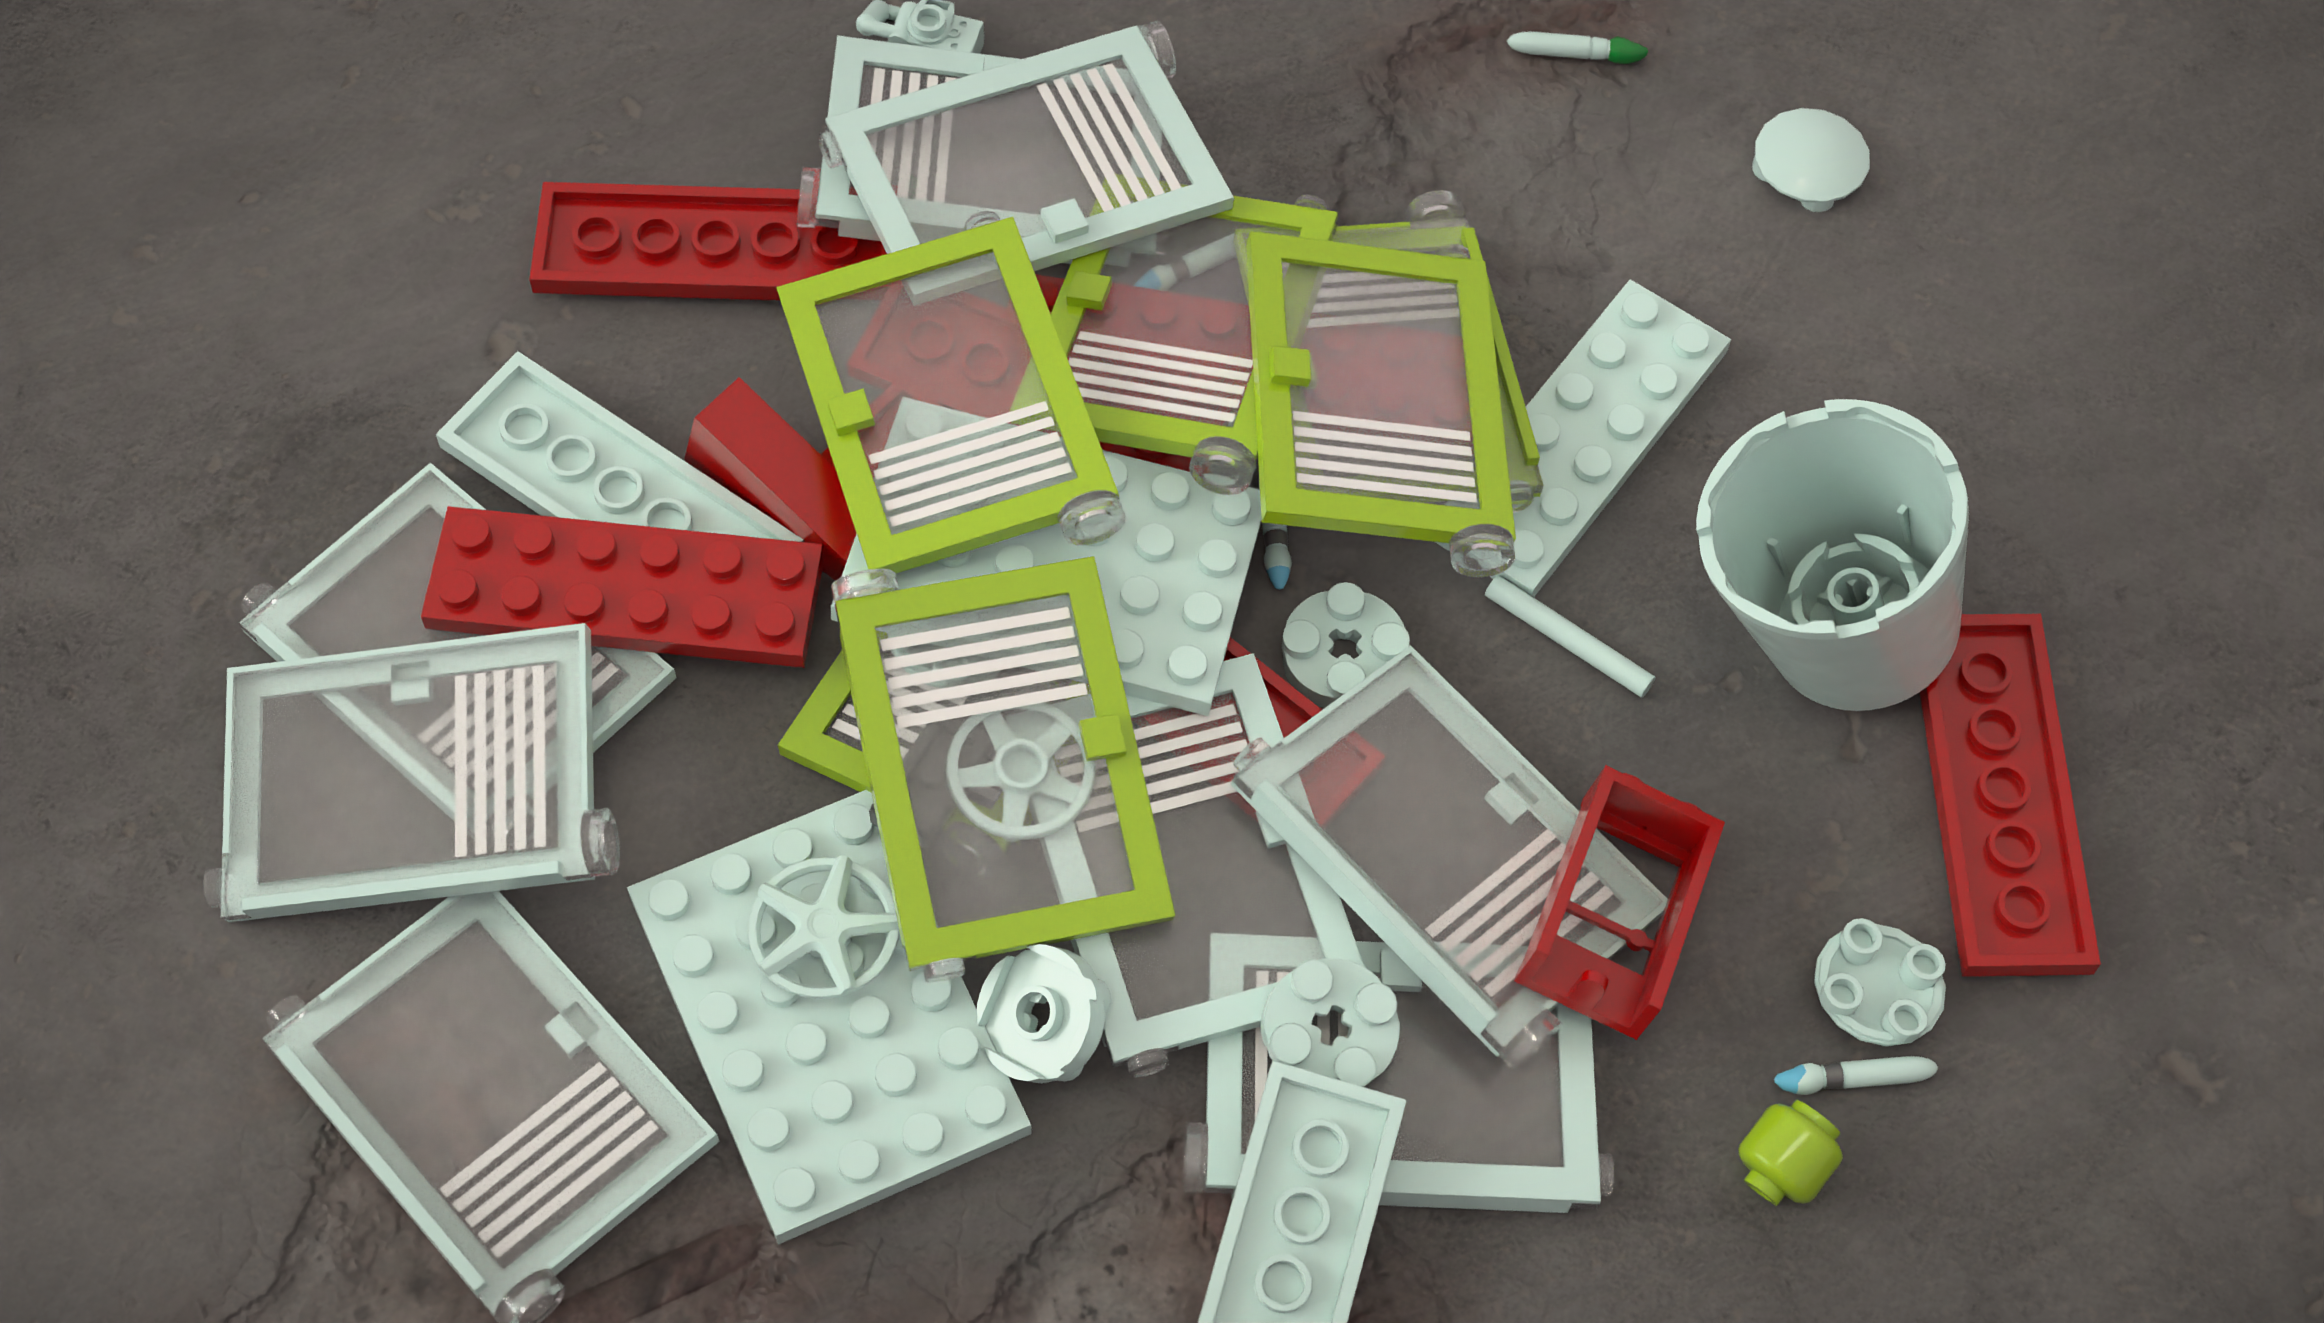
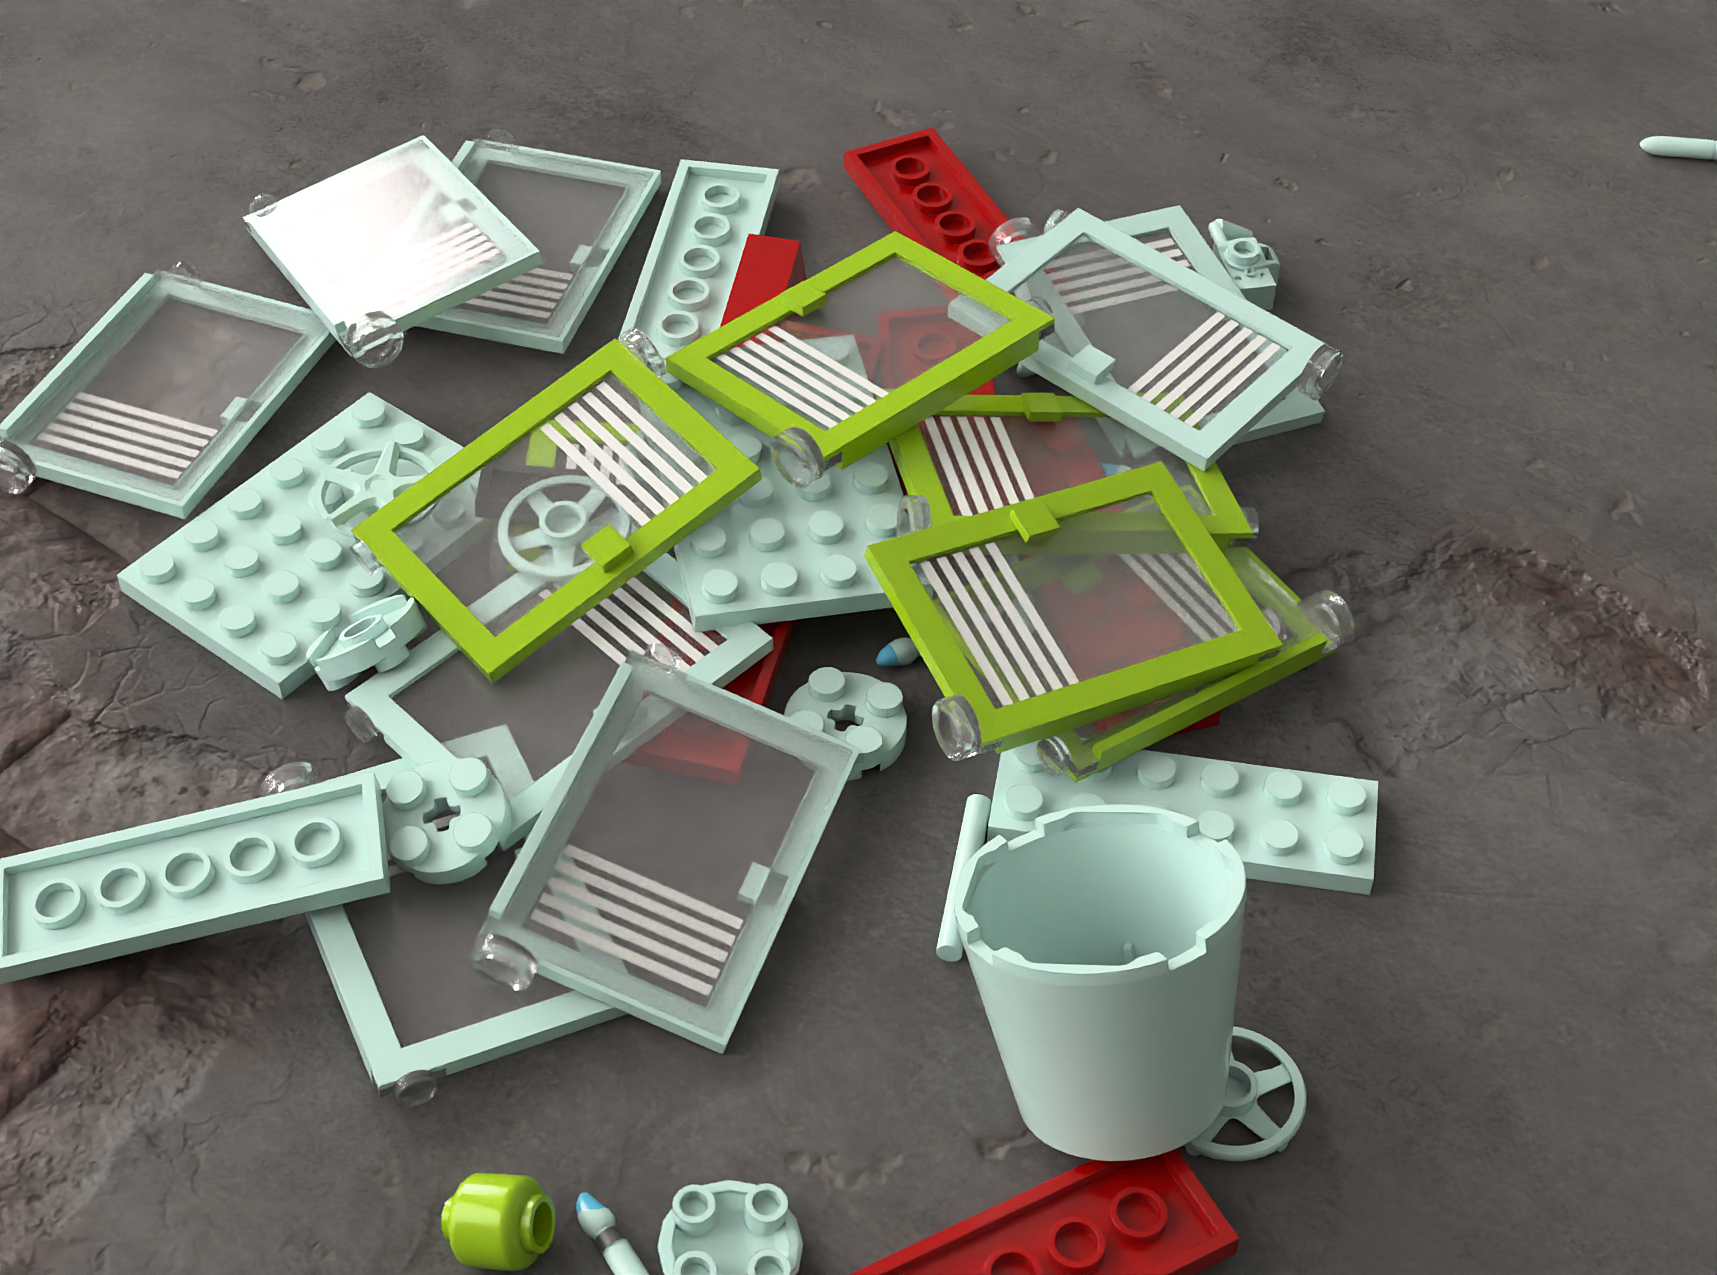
camera: 65 degrees right, 15 degrees down
(627, 584) = (603, 267): red plate -> none
(1587, 980) = (587, 975): red door -> none
(1616, 50) = (1631, 690): light aqua piece -> none
(1811, 157) = (1645, 878): light aqua dish -> none

